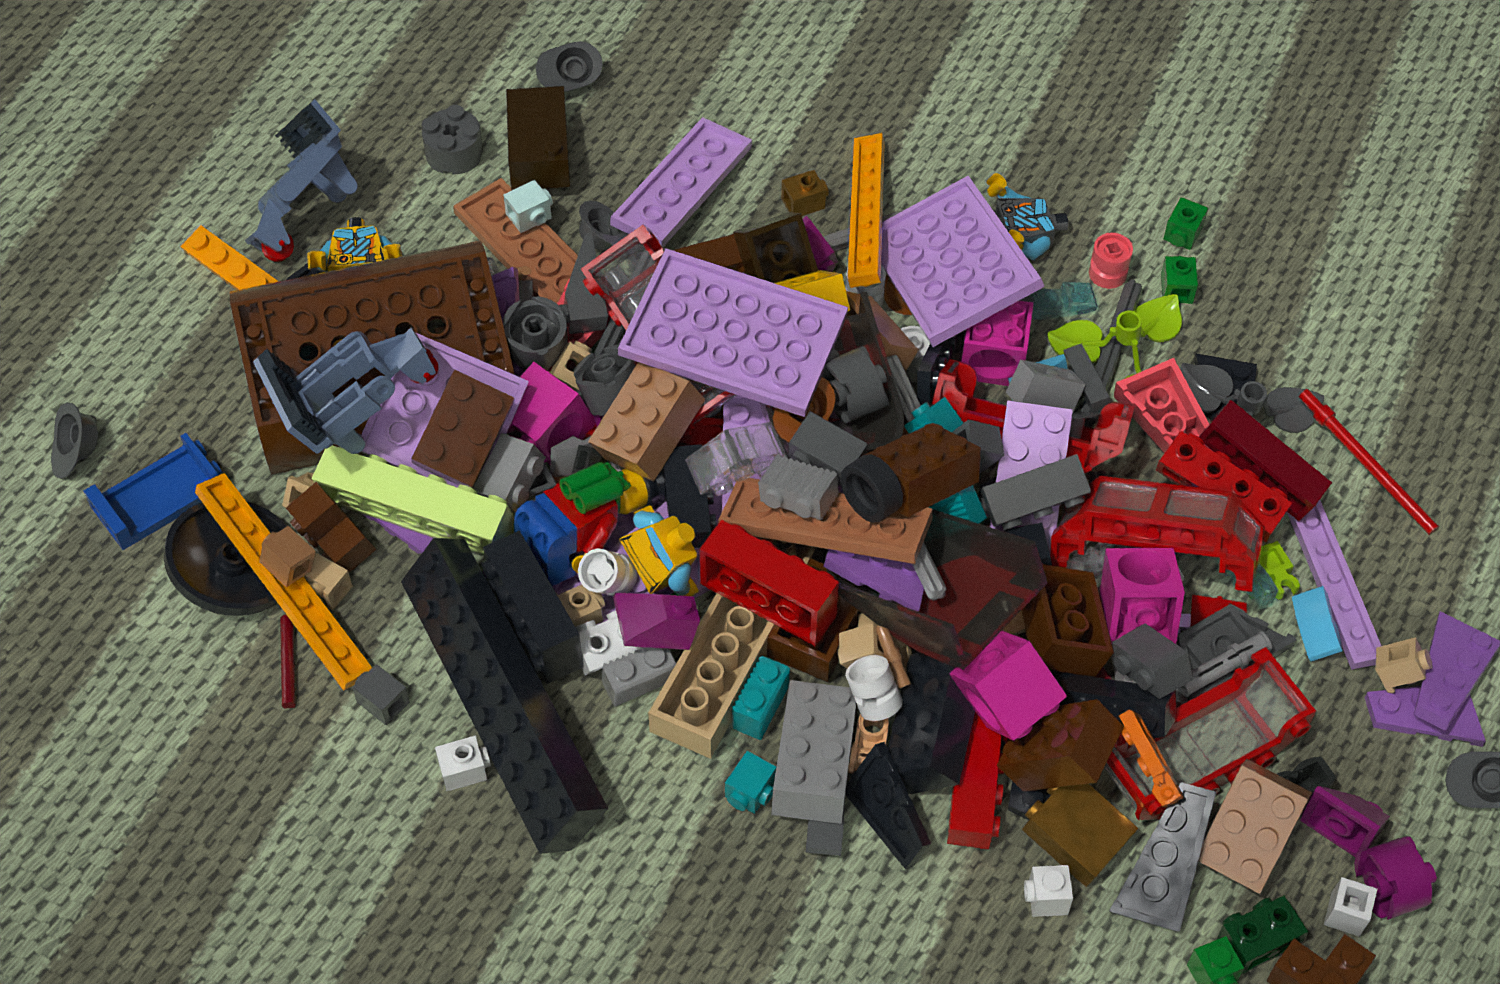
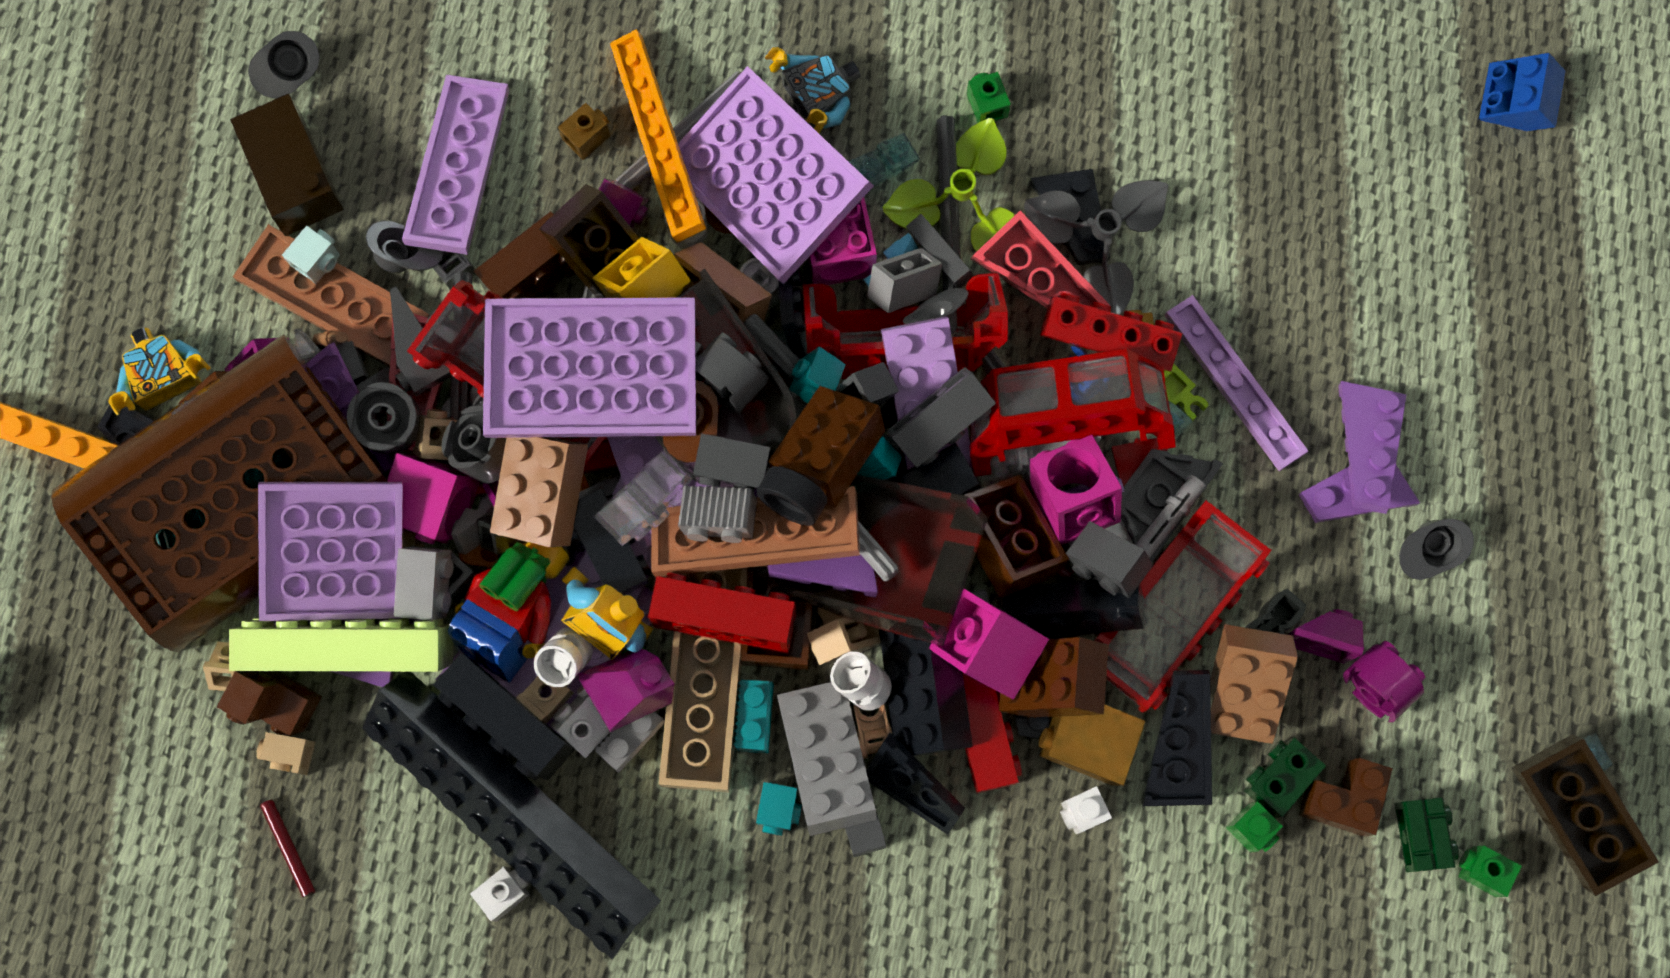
camera: 20 degrees left, 20 degrees up
(153, 494) = (74, 720): blue panel -> none
(209, 566) = (182, 767): black dish -> none
(287, 556) = (240, 756): medium nougat brick -> none
(298, 599) = (245, 773): light orange plate -> none
(307, 399) = (172, 597): sand blue container -> none
(317, 143) = (62, 294): sand blue container -> none
(380, 694) = (392, 852): dark grey brick -> none
(452, 140) = (198, 197): dark grey brick -> none
(462, 429) = (360, 566): reddish brown brick -> none
(893, 657) = (868, 644): medium nougat piece -> none
(1110, 260) = (916, 102): coral wheel -> none
(1151, 758) = (1142, 663): orange hinge -> none
(1184, 230) = (973, 30): green brick -> none
(1260, 451) = (1139, 289): dark red brick -> none
(1317, 624) = (1235, 439): medium azure slope -> none
(1326, 417) = (1176, 207): red bar -> none
(1350, 906) = (1353, 722): white brick -> none
(1402, 663) = (1328, 458): tan brick -> none

